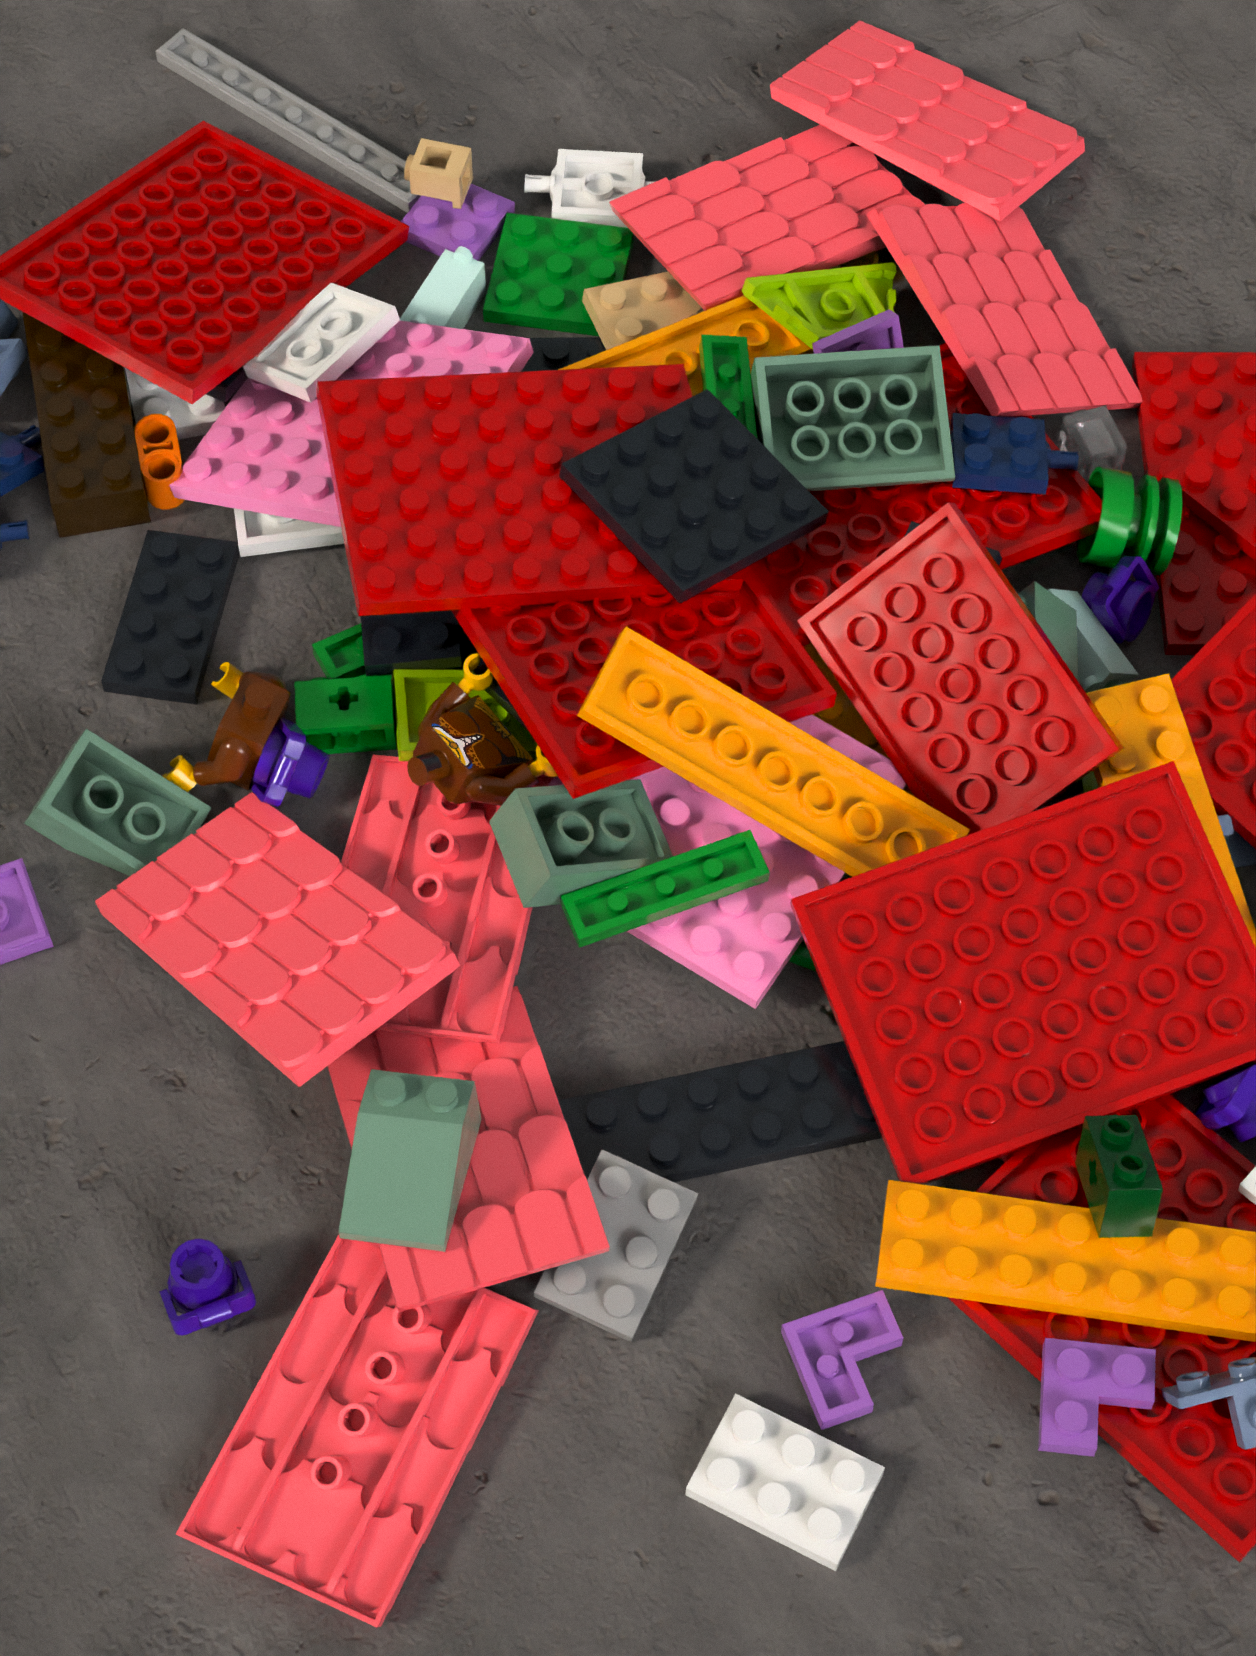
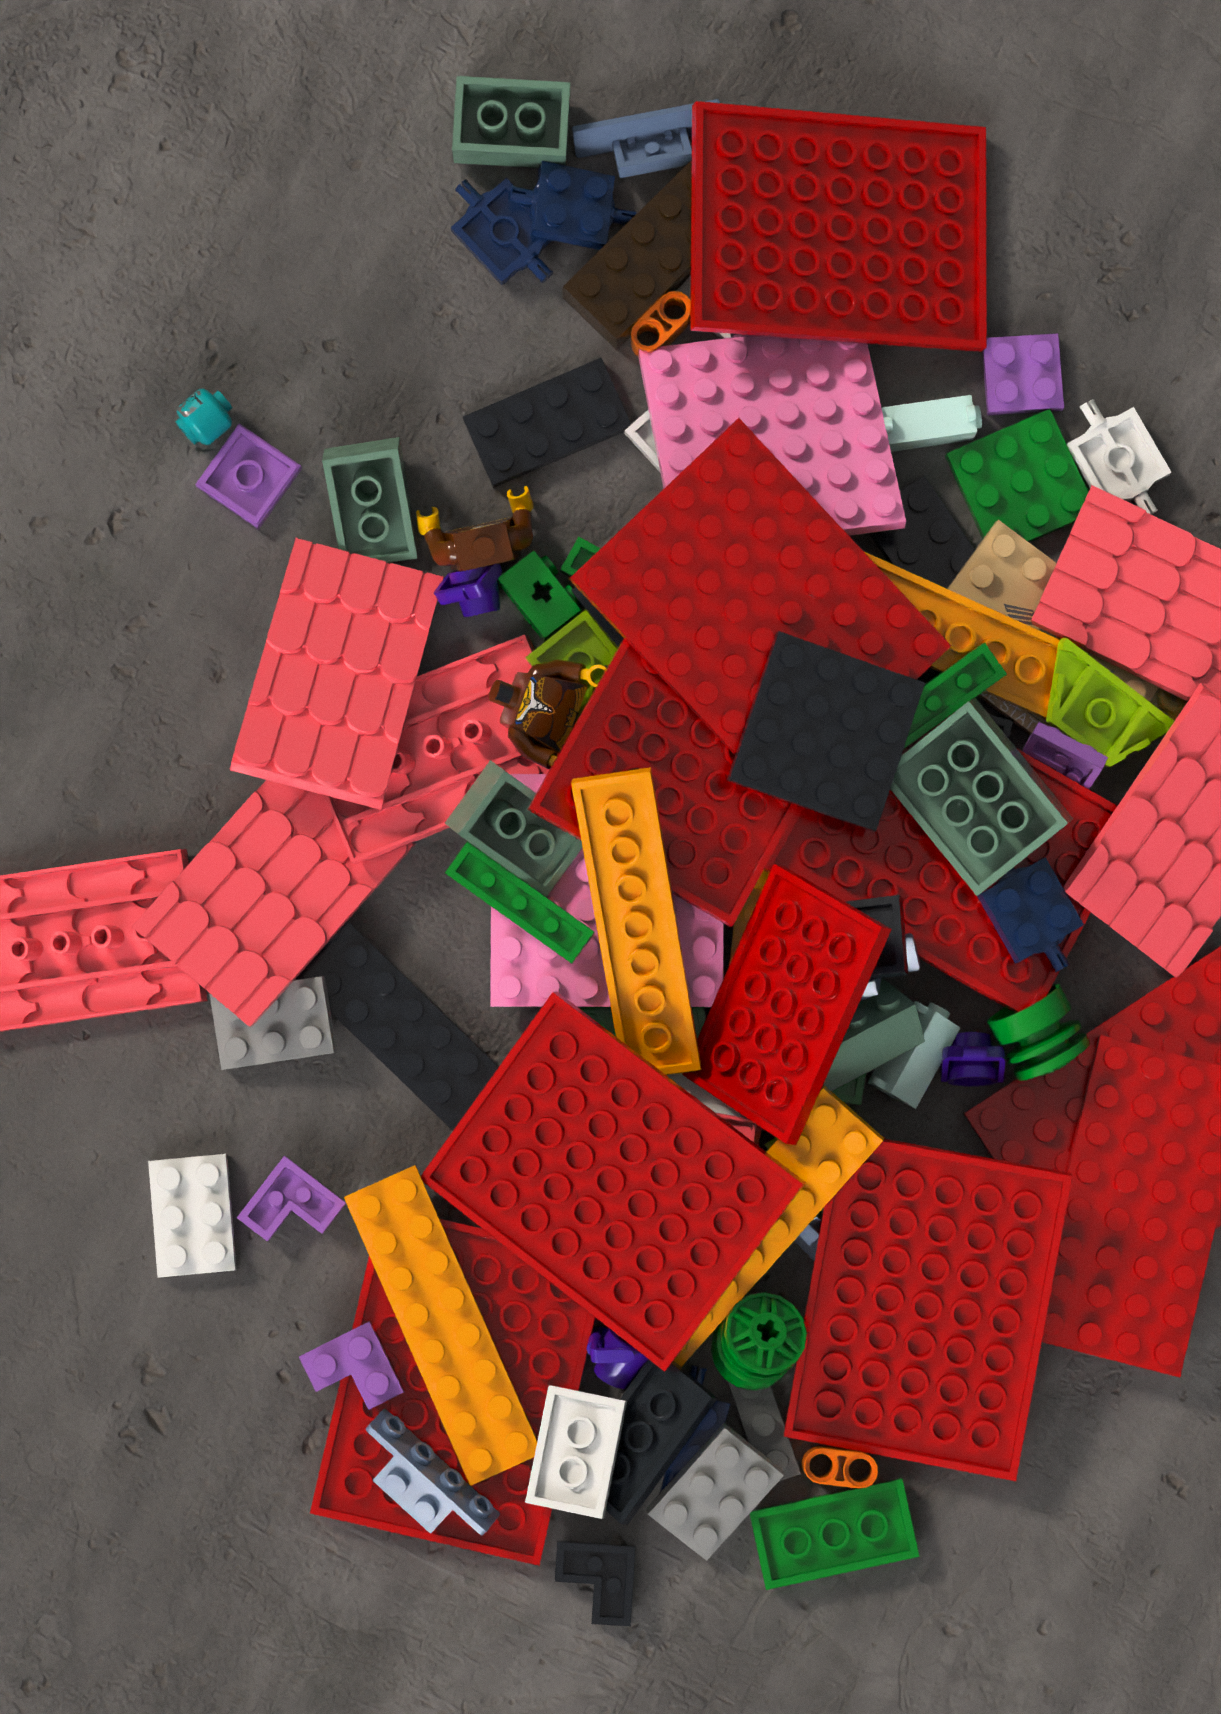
camera: 55 degrees right, 25 degrees up
(204, 1287) = (93, 791): dark purple piece -> none
(288, 116) = (1040, 187): light grey tile -> none
(322, 341) = (816, 374): white plate -> none
(409, 1159) = (227, 869): sand green slope -> none
(440, 171) = (1044, 328): tan brick -> none
(1095, 439) = (1108, 963): clear brick -> none
(1118, 1176) = (497, 1308): dark green brick -> none

